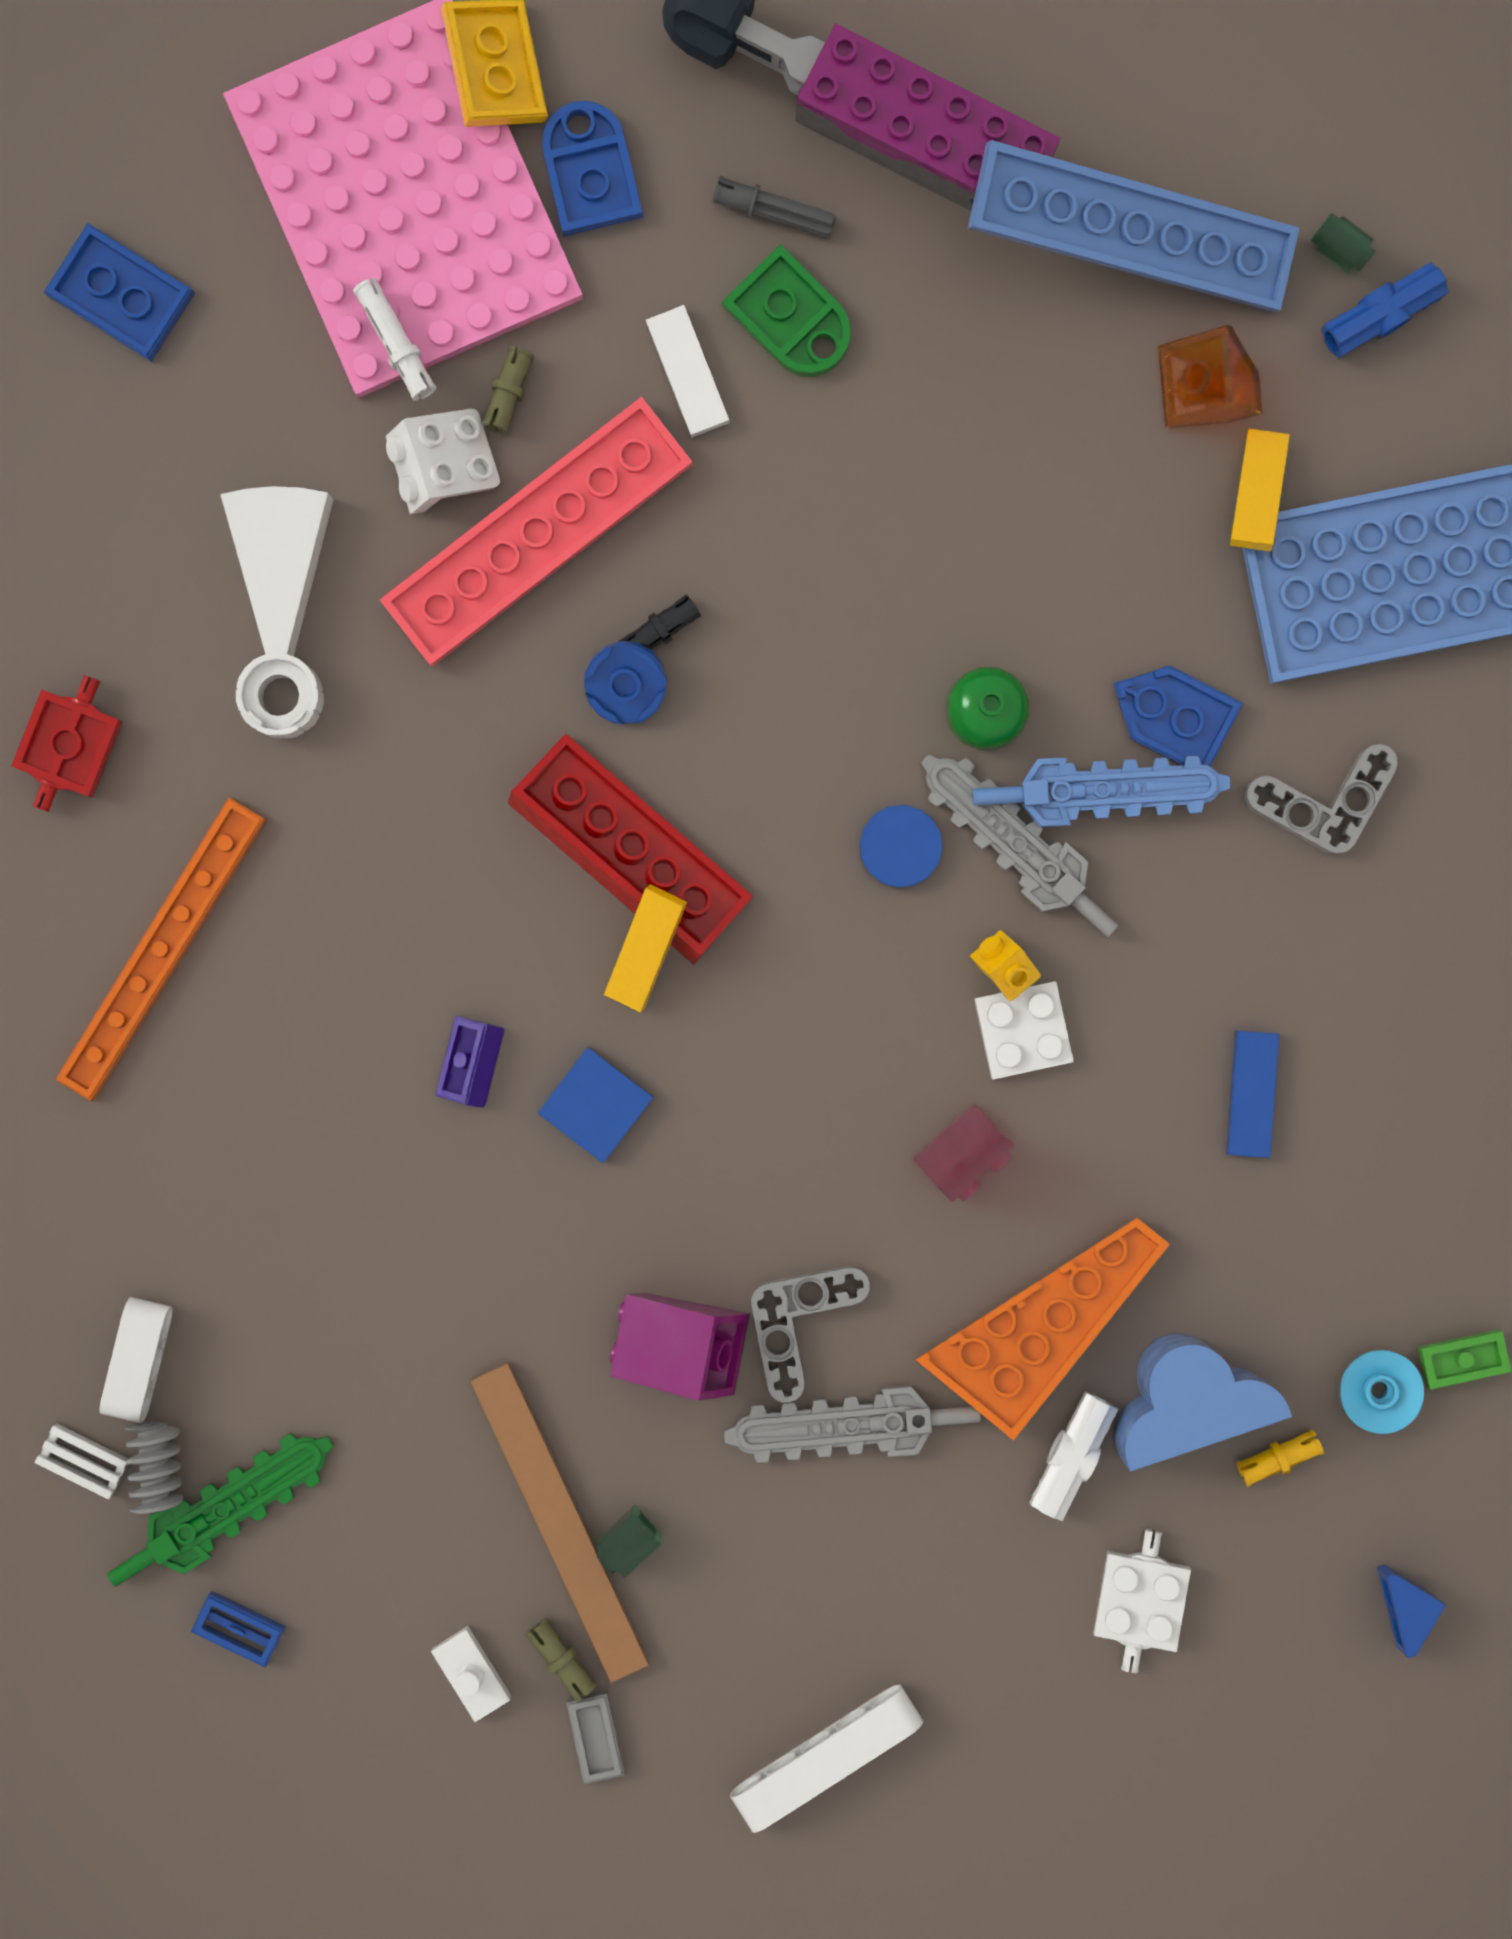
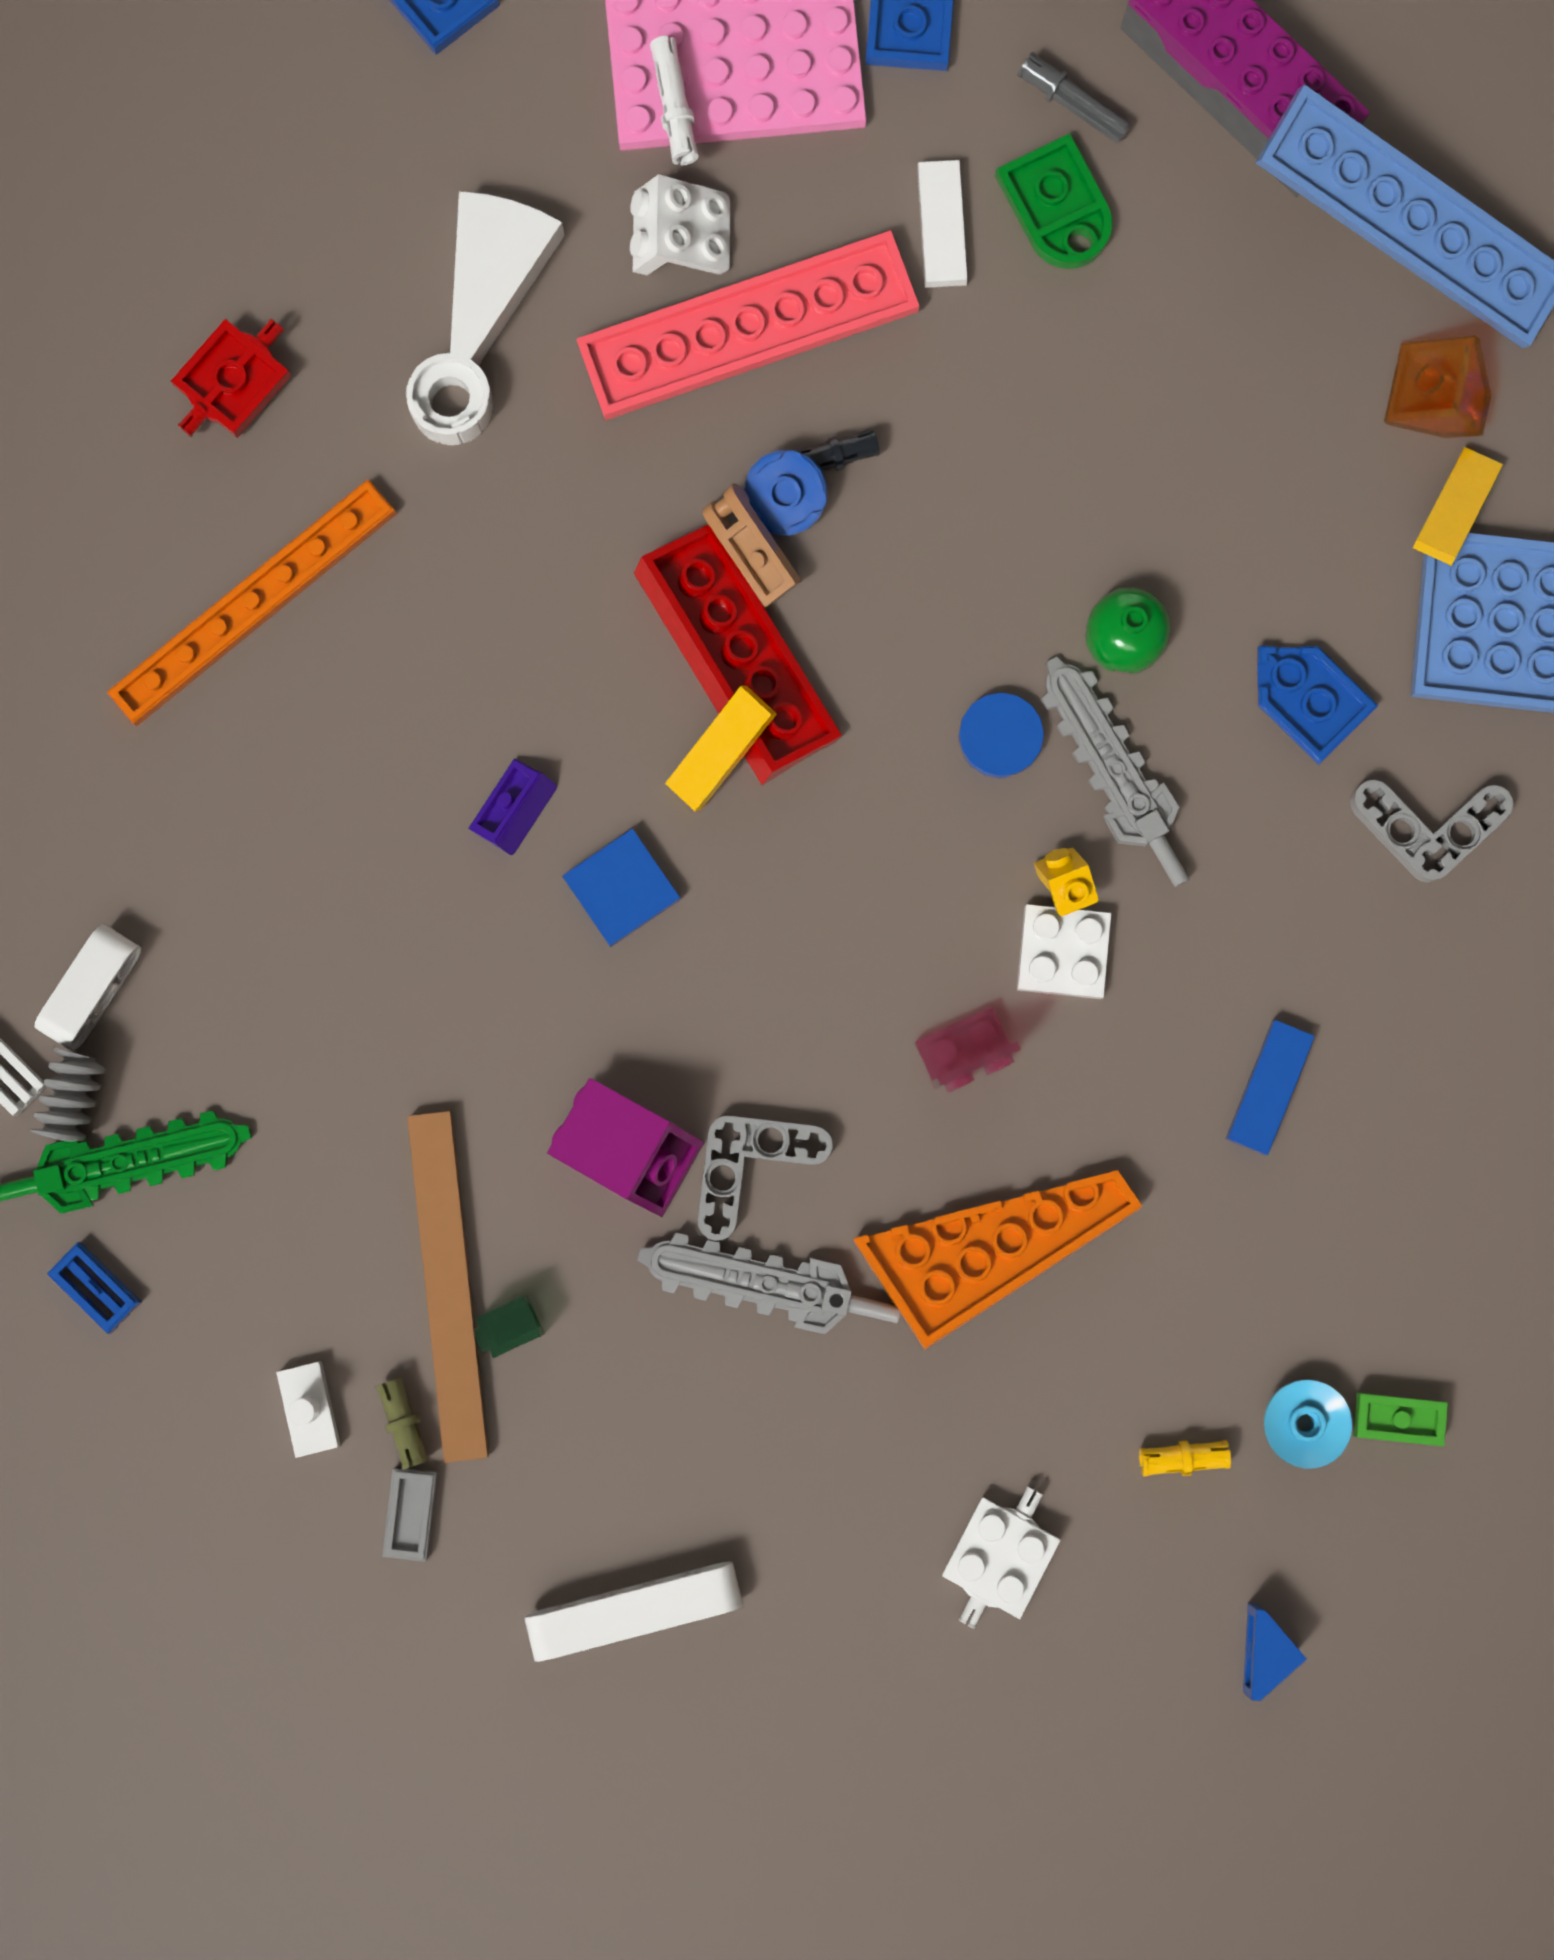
camera: 20 degrees right, 5 degrees down
(508, 390) = (765, 185): olive pin -> none
(609, 744) = (751, 546): none -> medium nougat plate
(1057, 792) = (1170, 730): medium blue bar -> none
(1073, 1456) = (979, 1387): white piece -> none
(1190, 1402) = (1115, 1364): medium blue brick -> none

